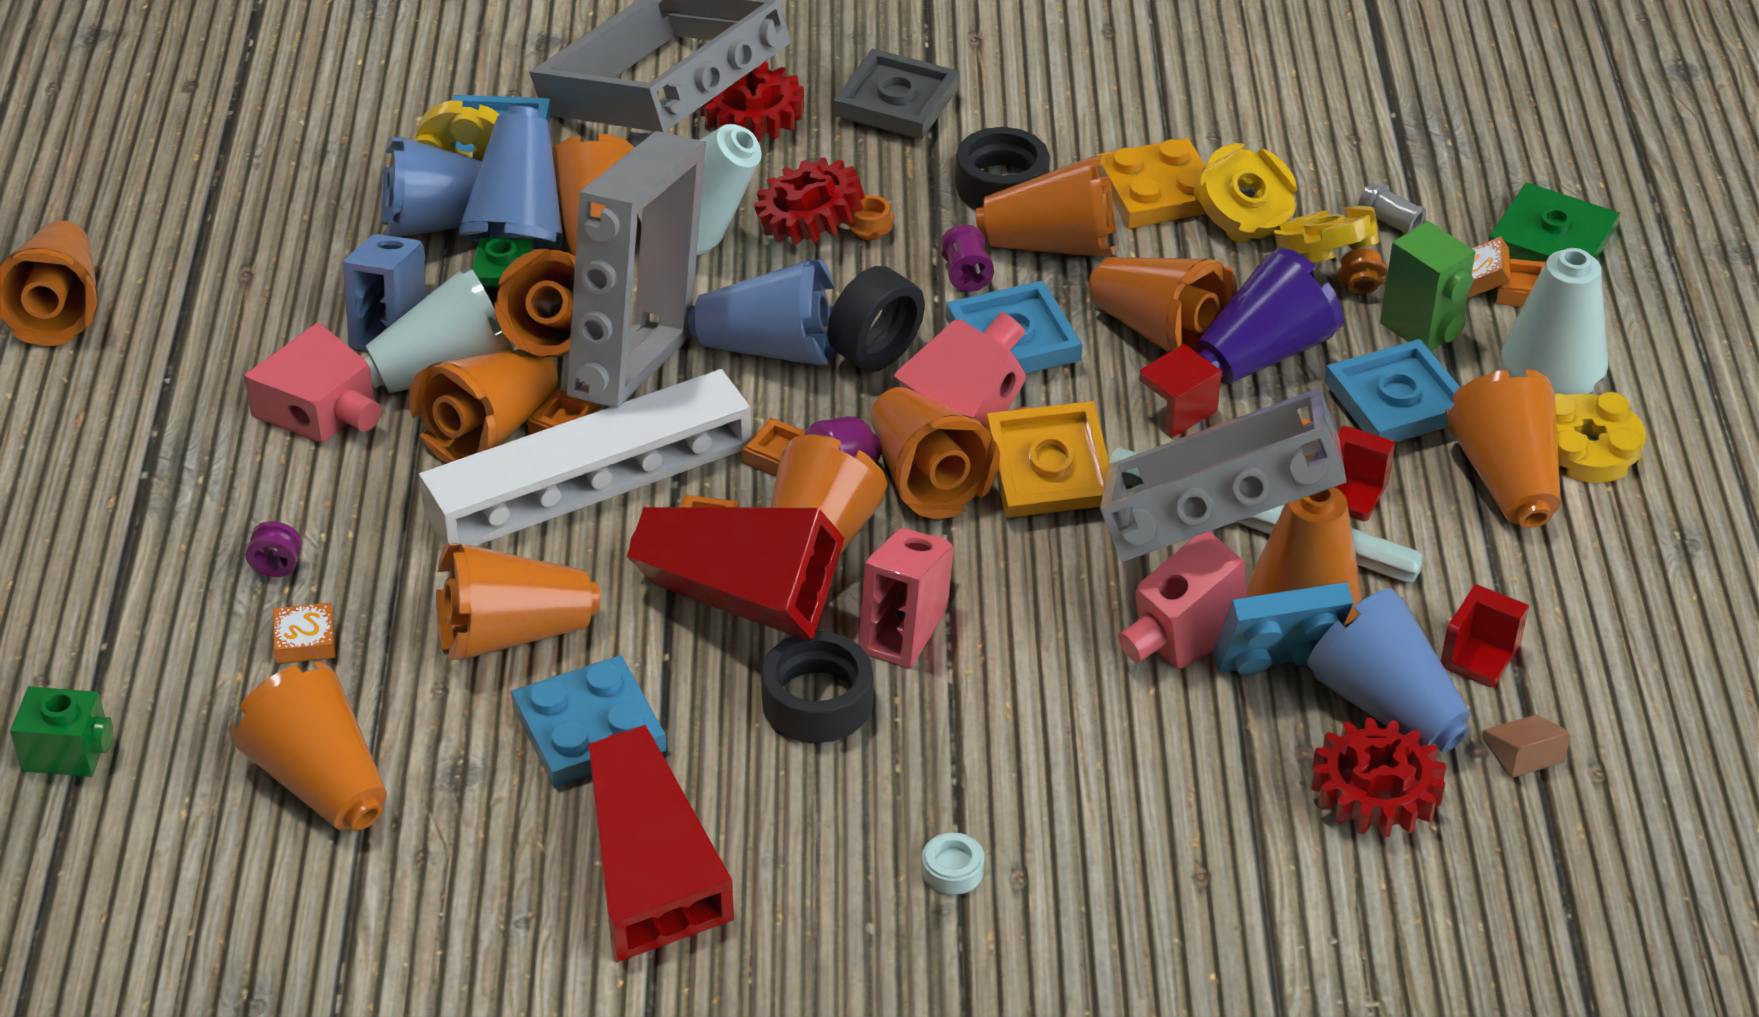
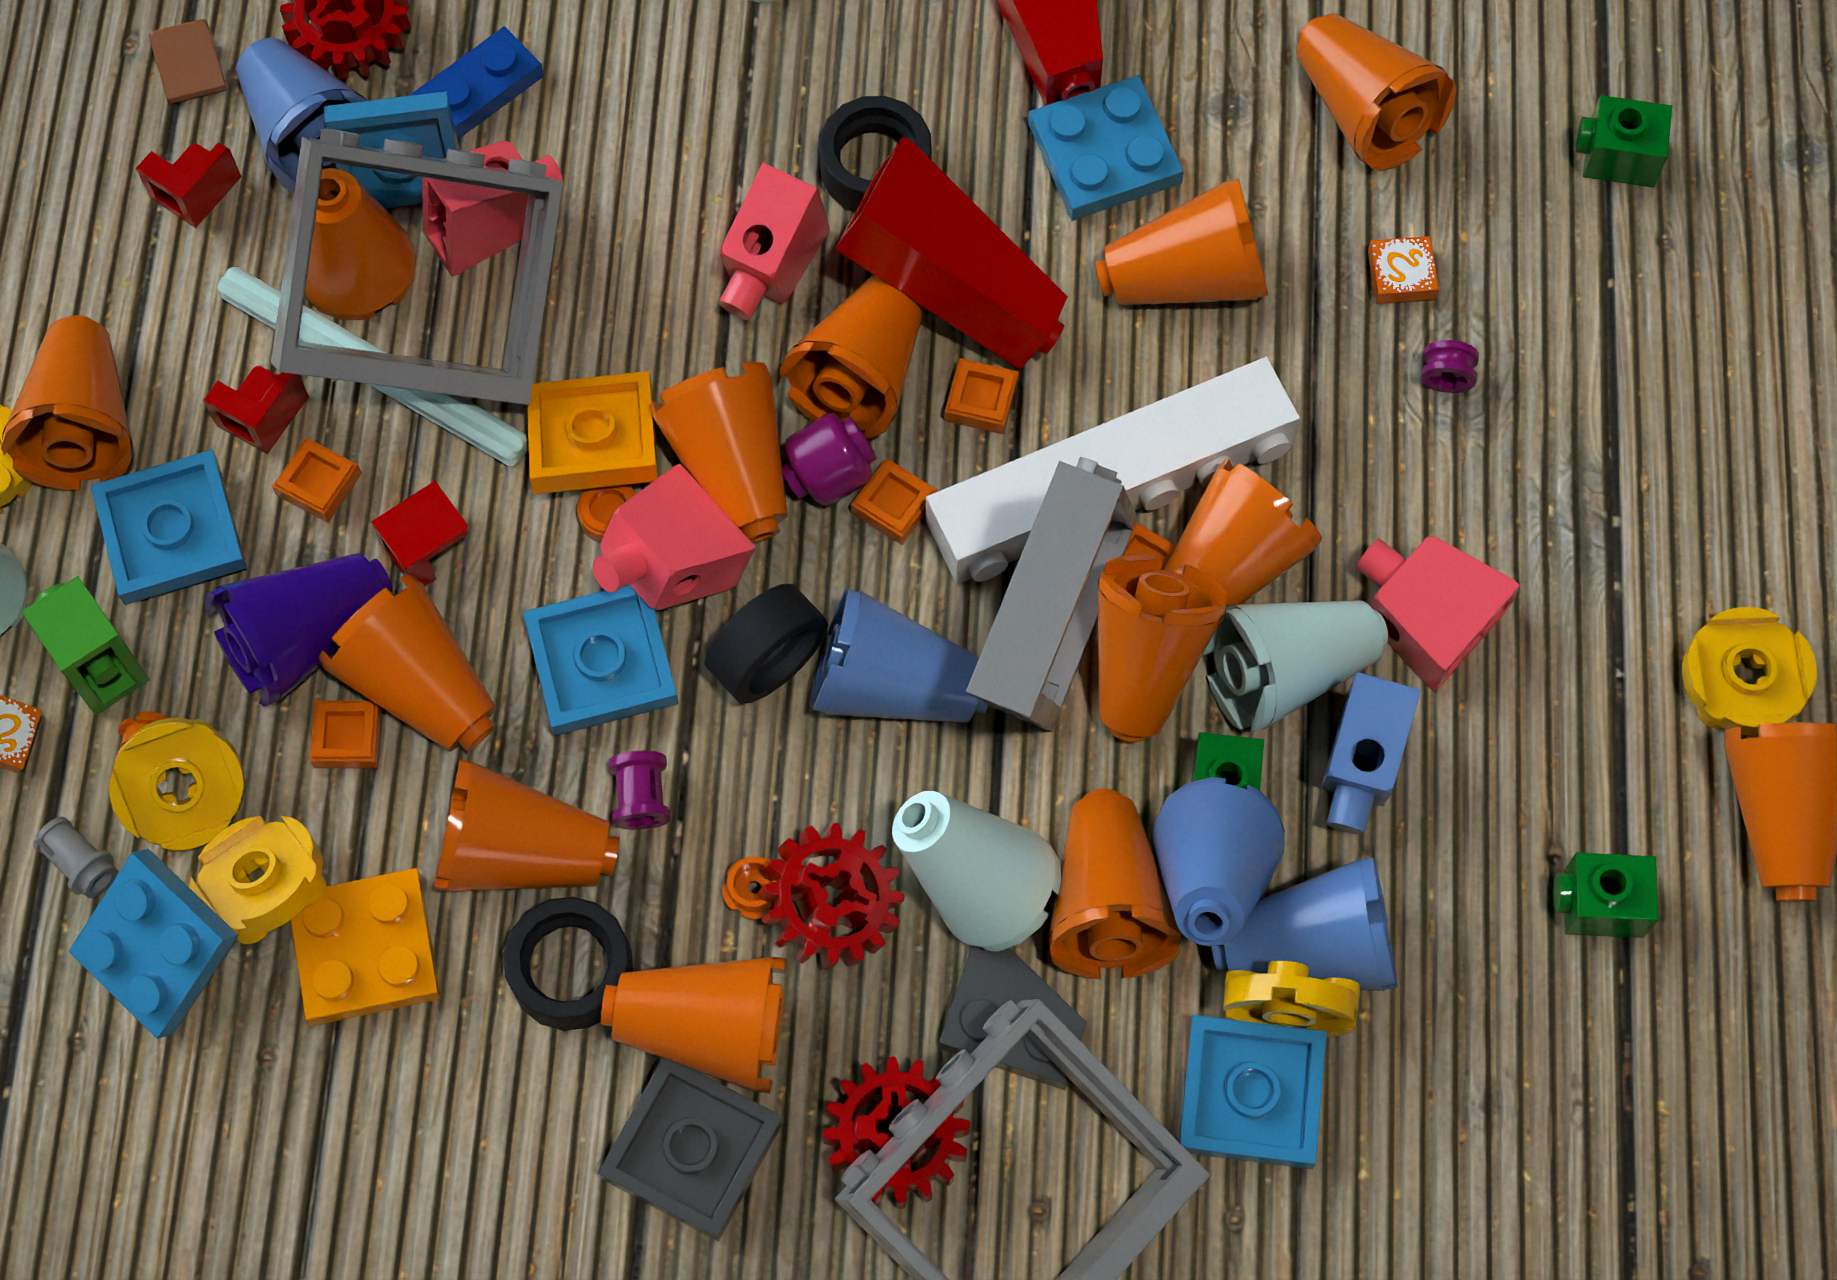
camera: 175 degrees left, 25 degrees up
(38, 381) = (1728, 701): none -> yellow plate
(211, 232) = (1608, 895): none -> green brick
(894, 121) = (703, 1016): none -> orange cone
(1241, 731) = (485, 79): none -> blue plate
(1304, 147) = (153, 943): none -> dark azure plate

